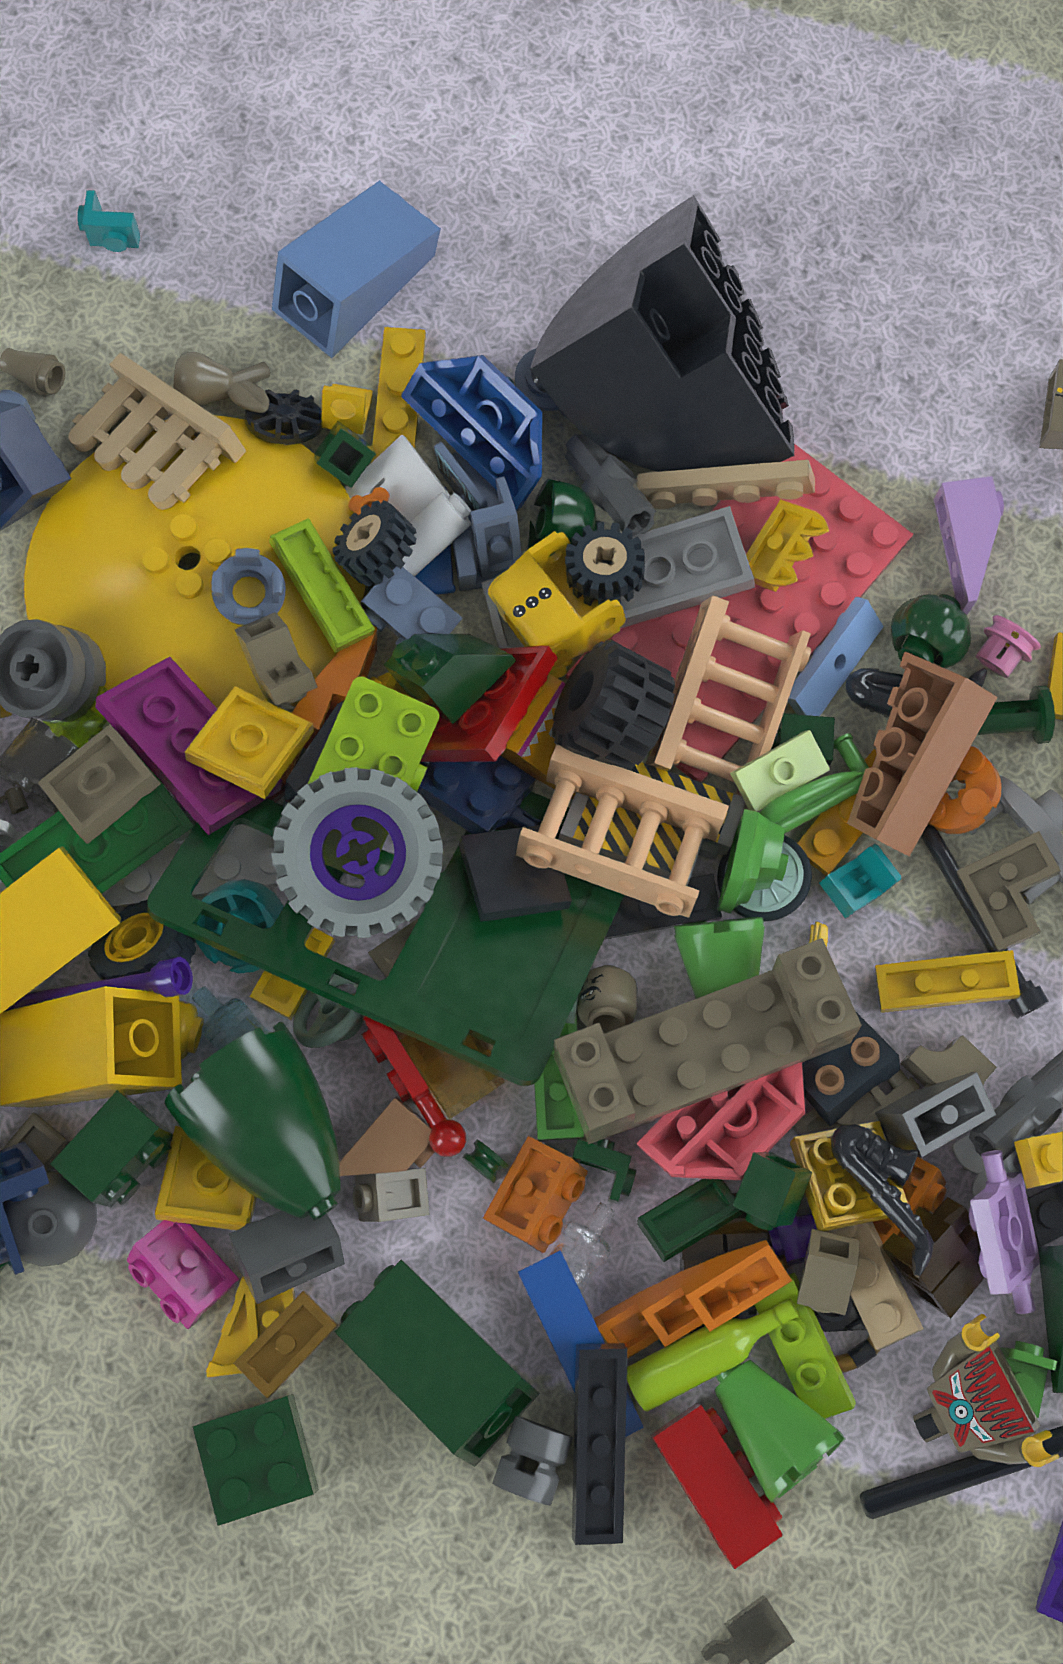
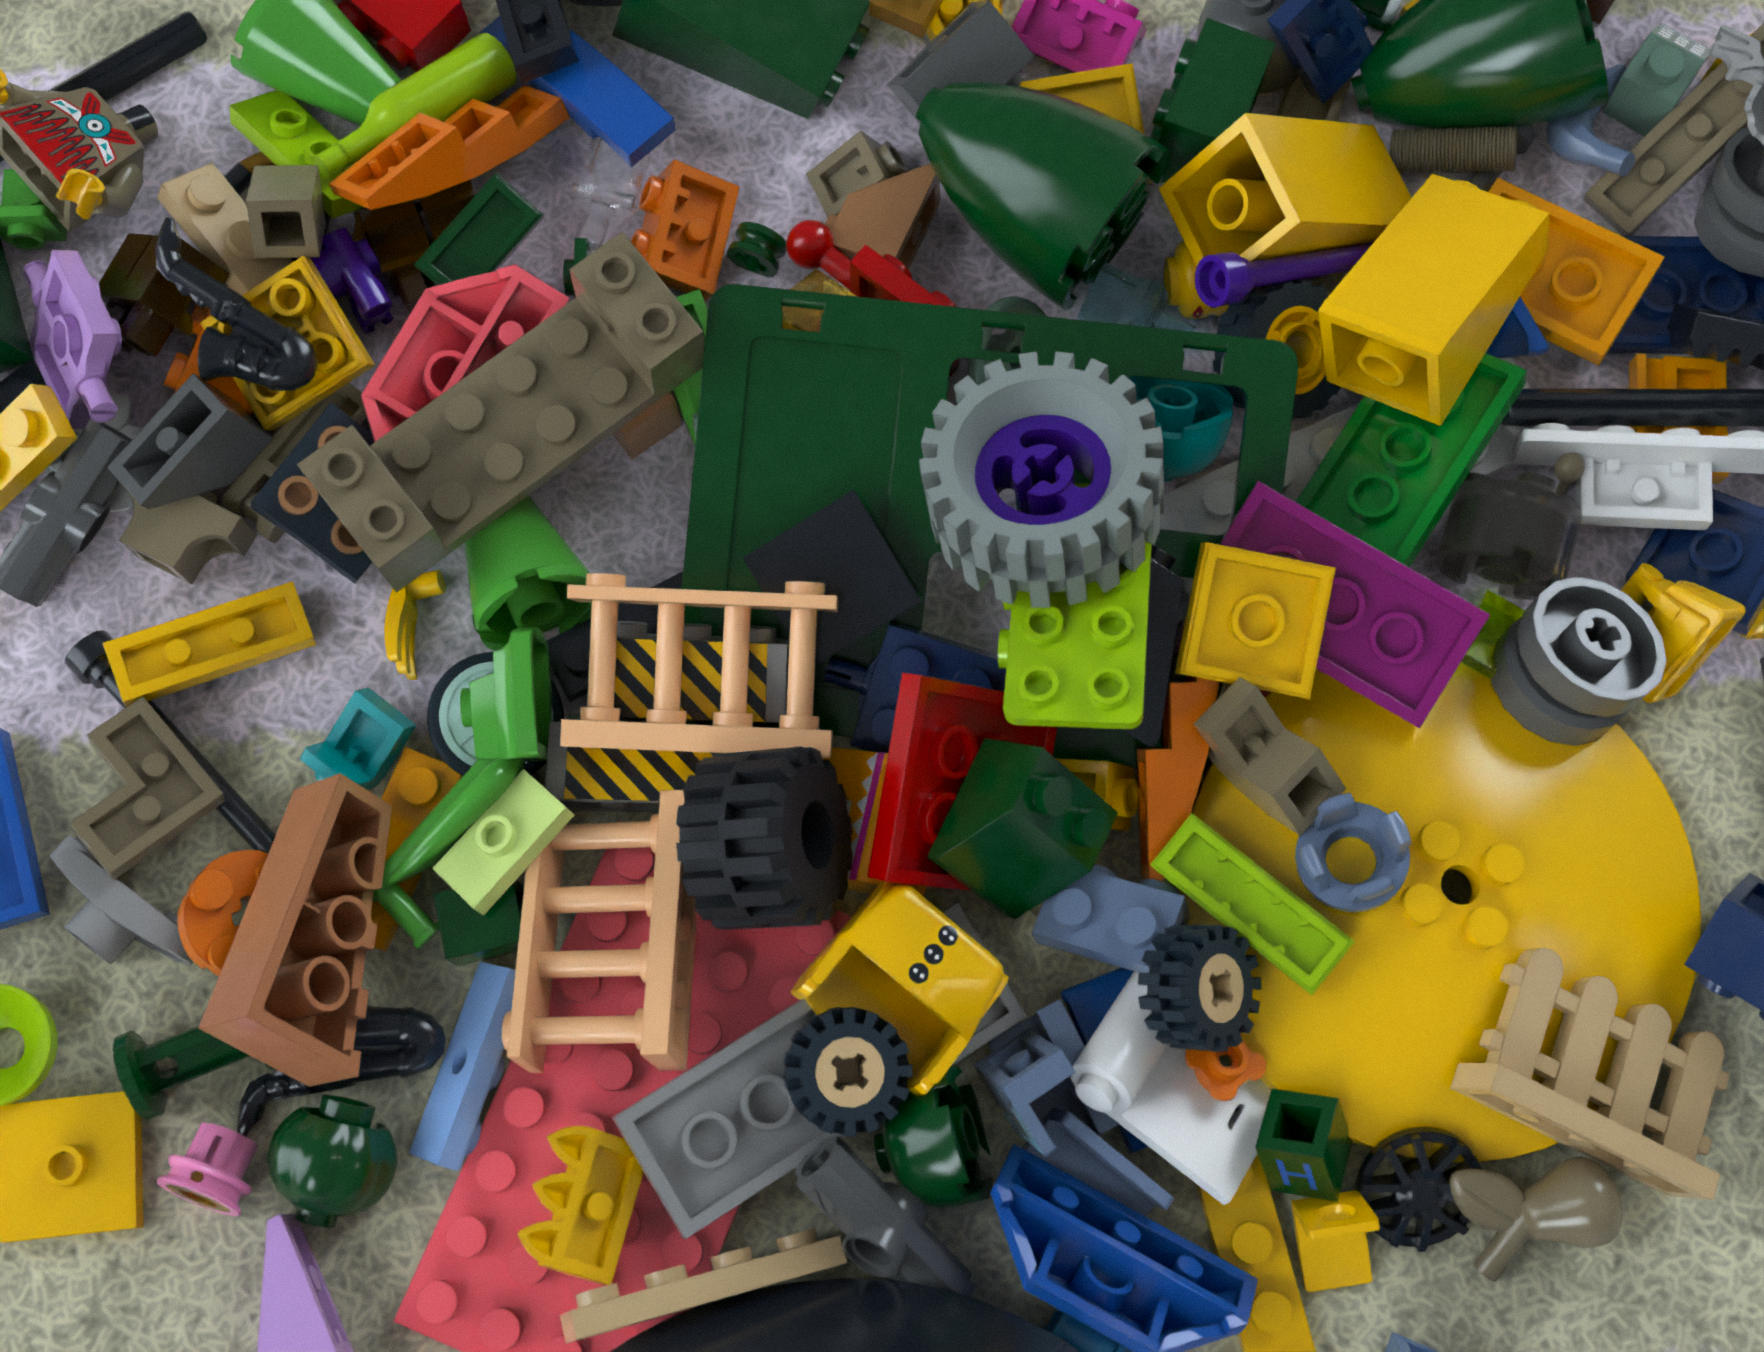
camera: 165 degrees right, 0 degrees up
(98, 784) = (1430, 493): dark tan hinge -> none
(608, 998) = (657, 477): dark tan head -> none
(771, 1190) = (379, 282): dark green brick -> none

